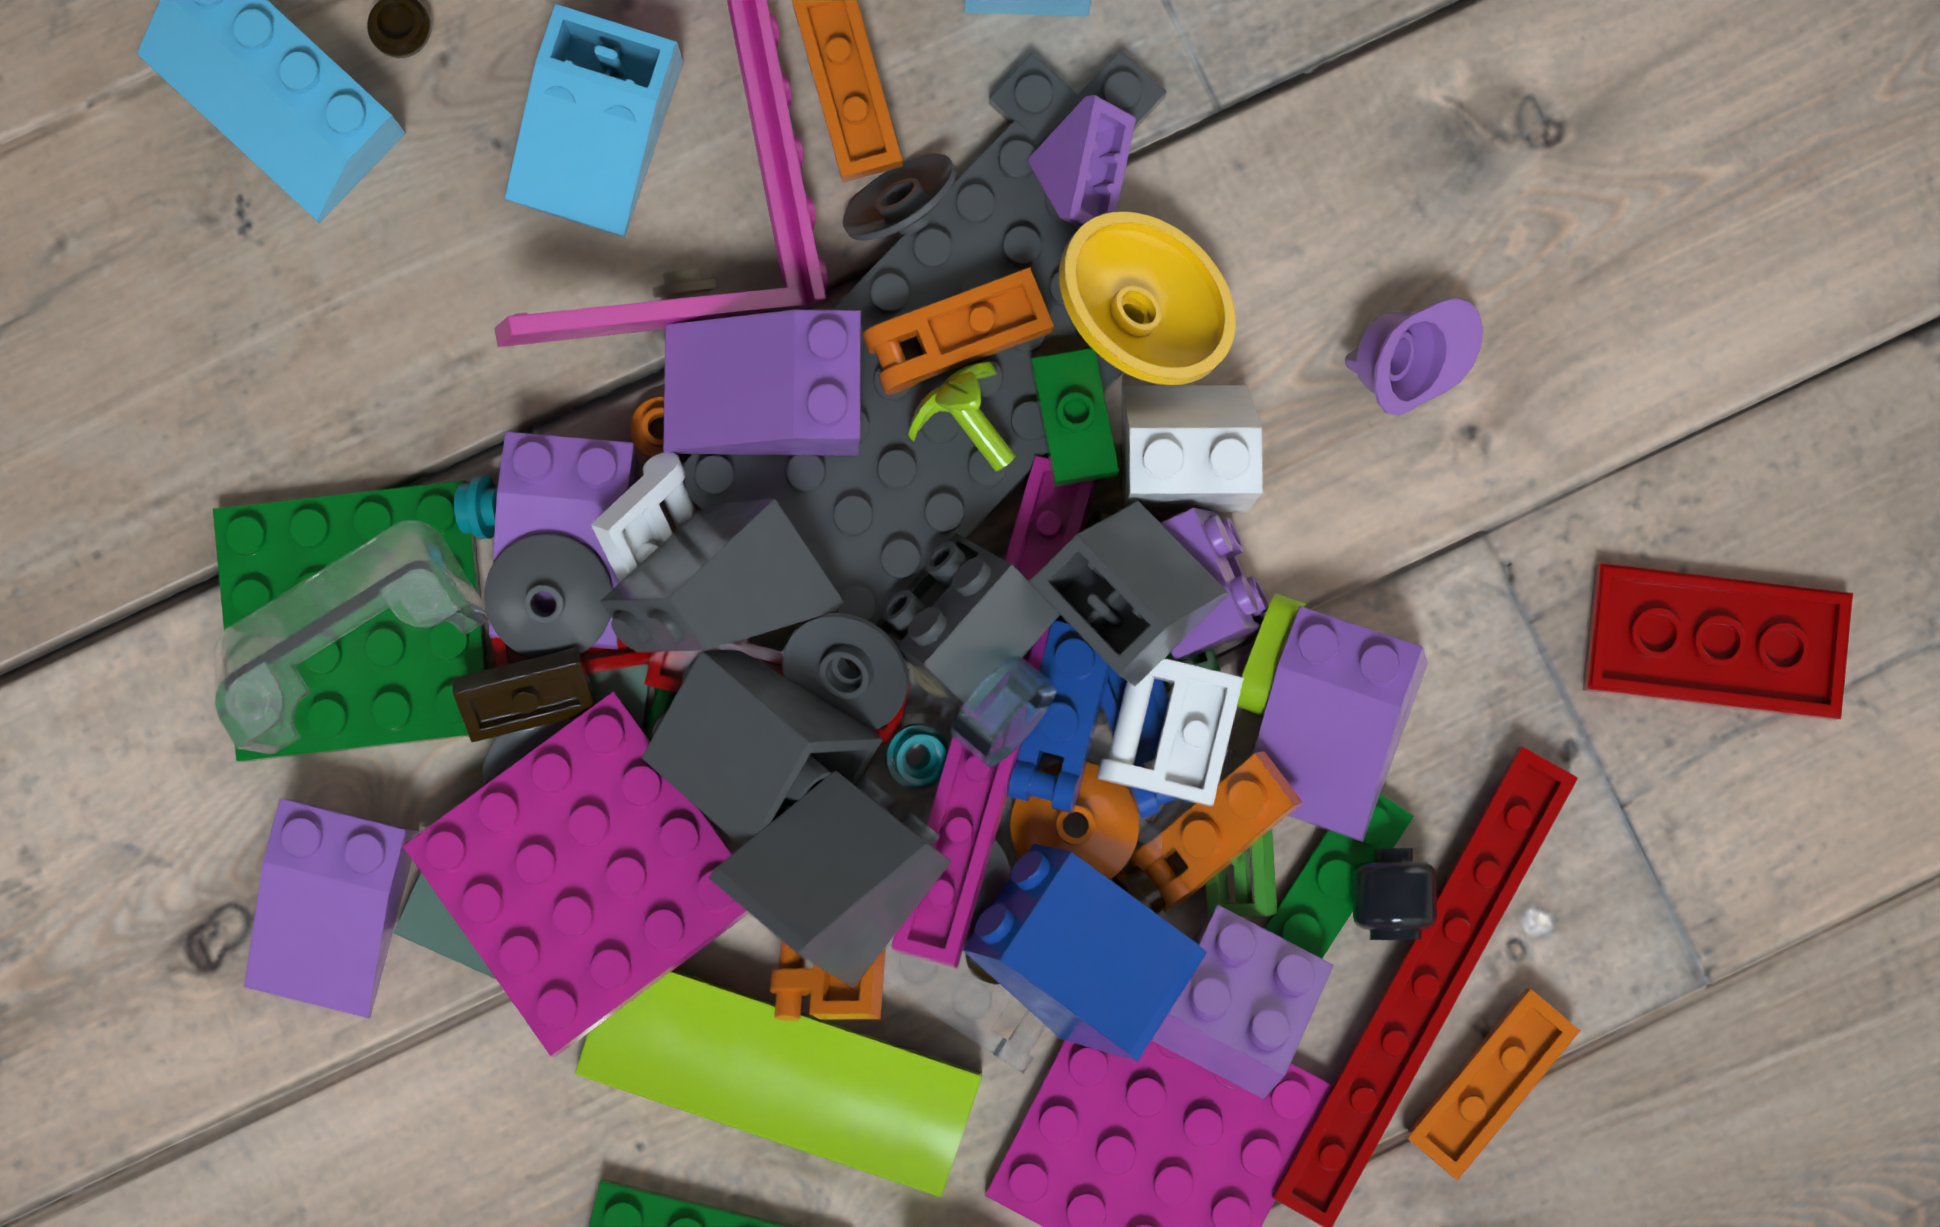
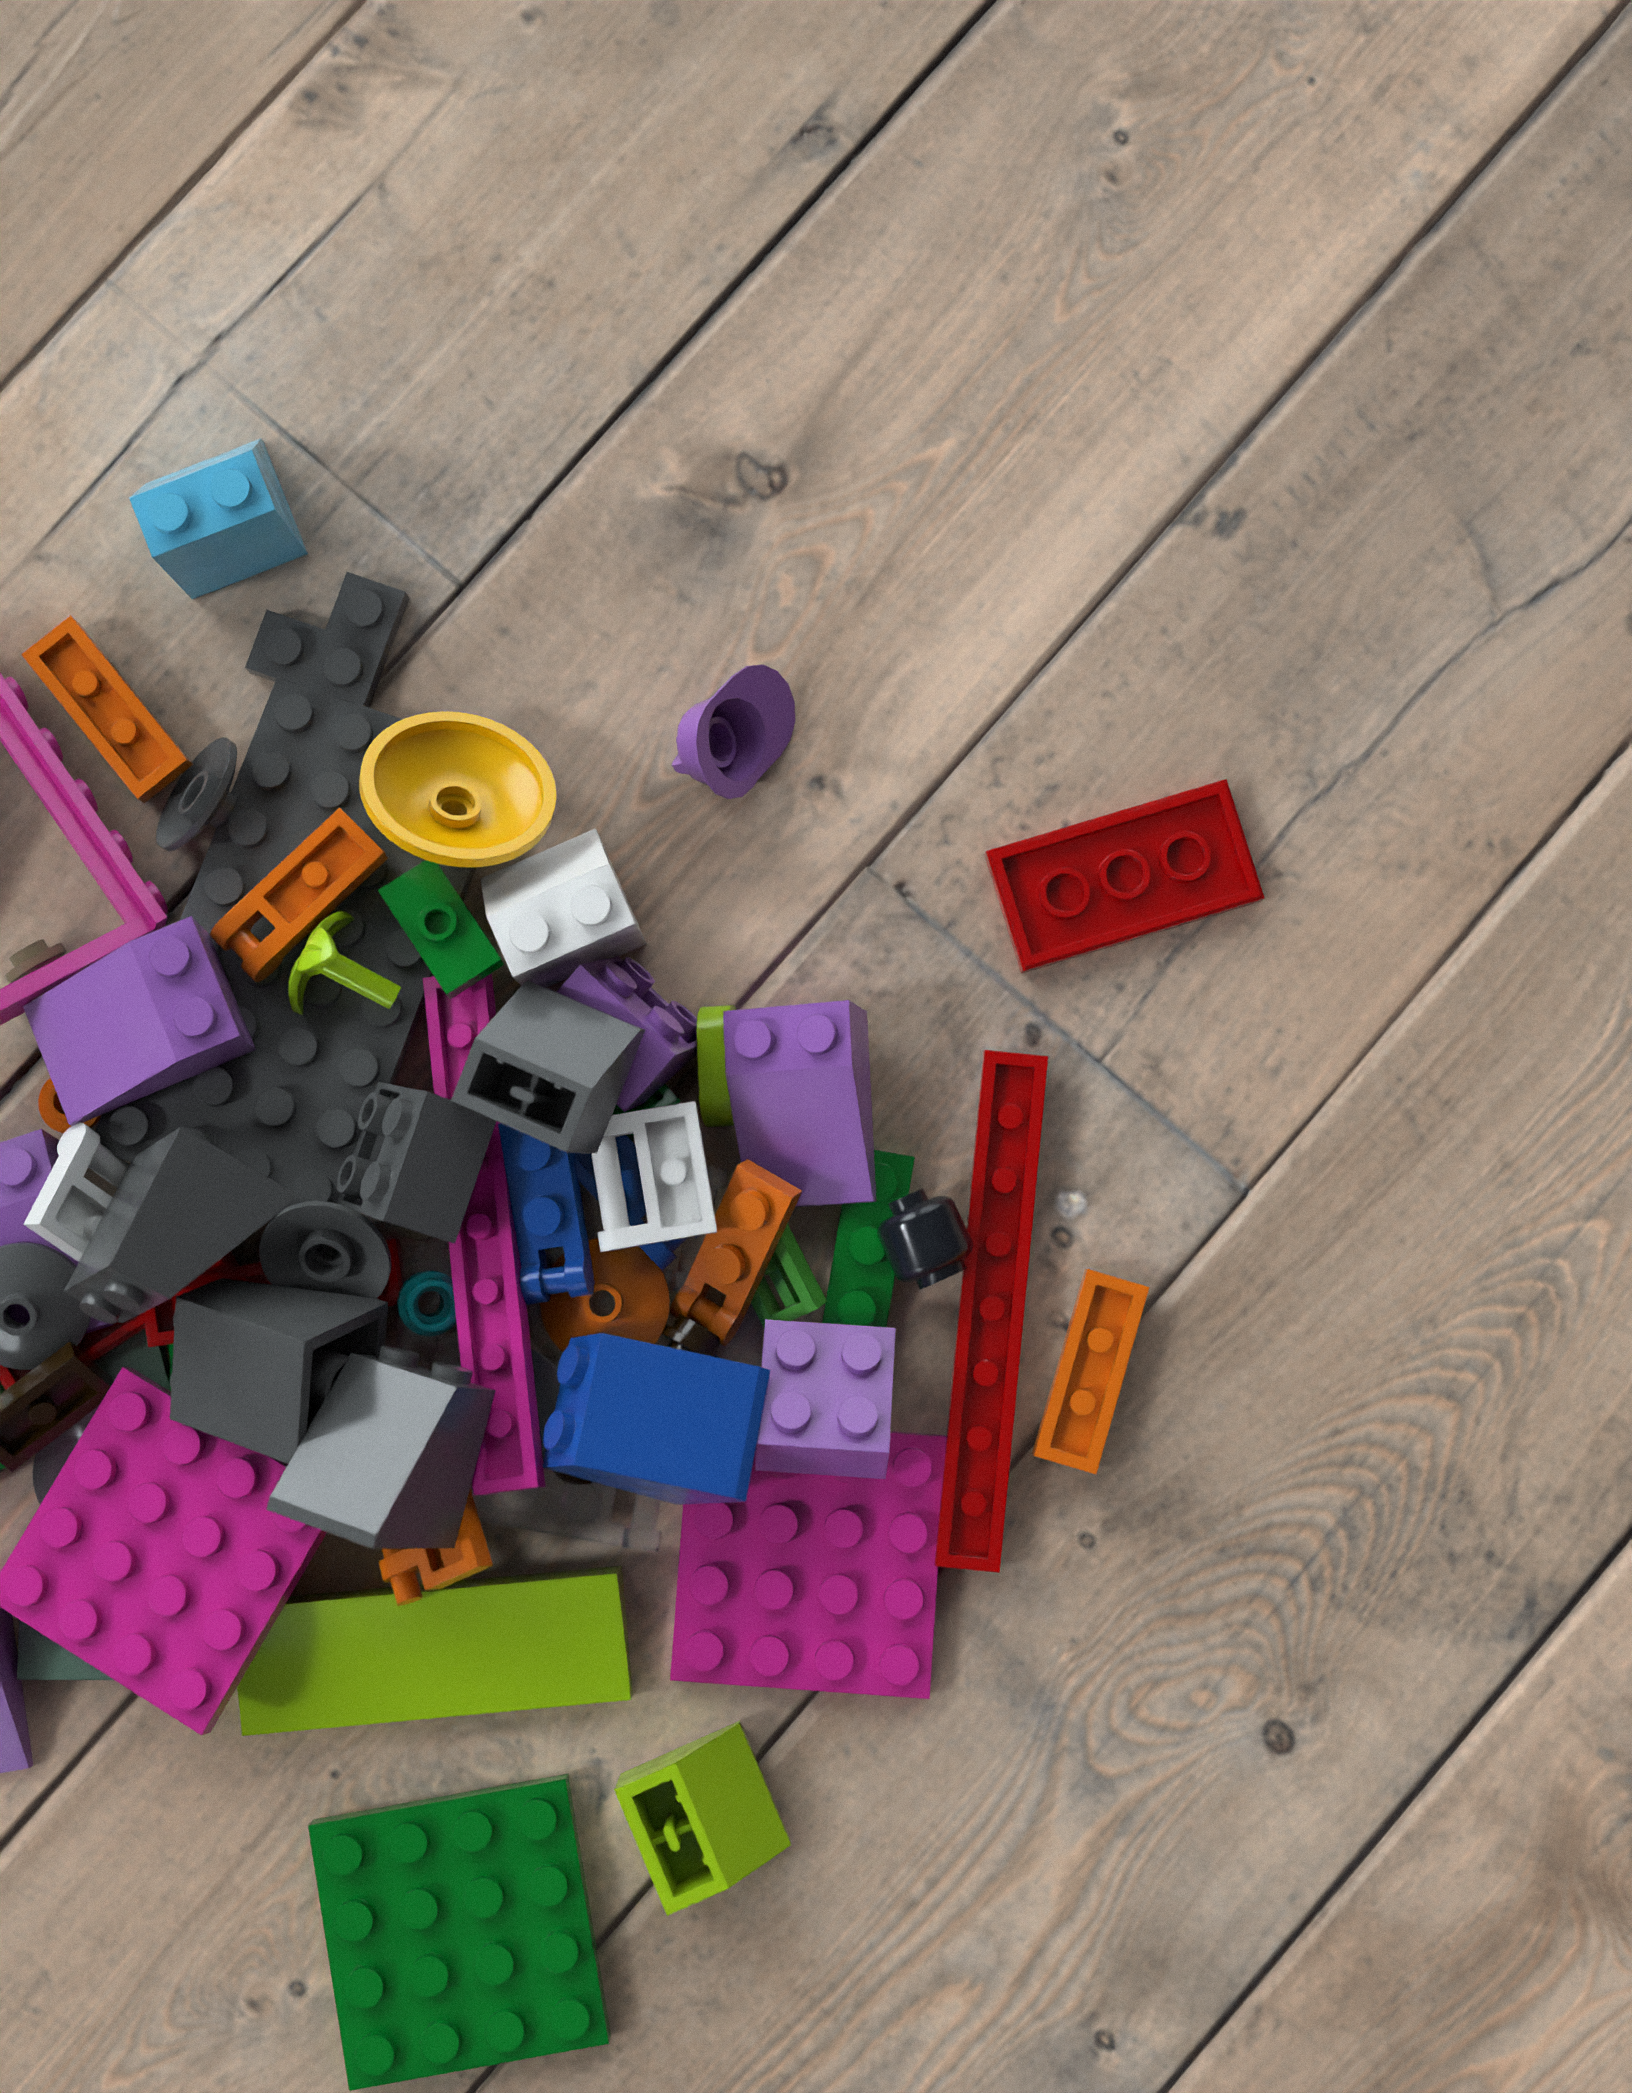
camera: 20 degrees left, 0 degrees up
(1003, 711) = (481, 1230): clear light blue piece -> none
(1085, 160) = (353, 685): medium lavender slope -> none

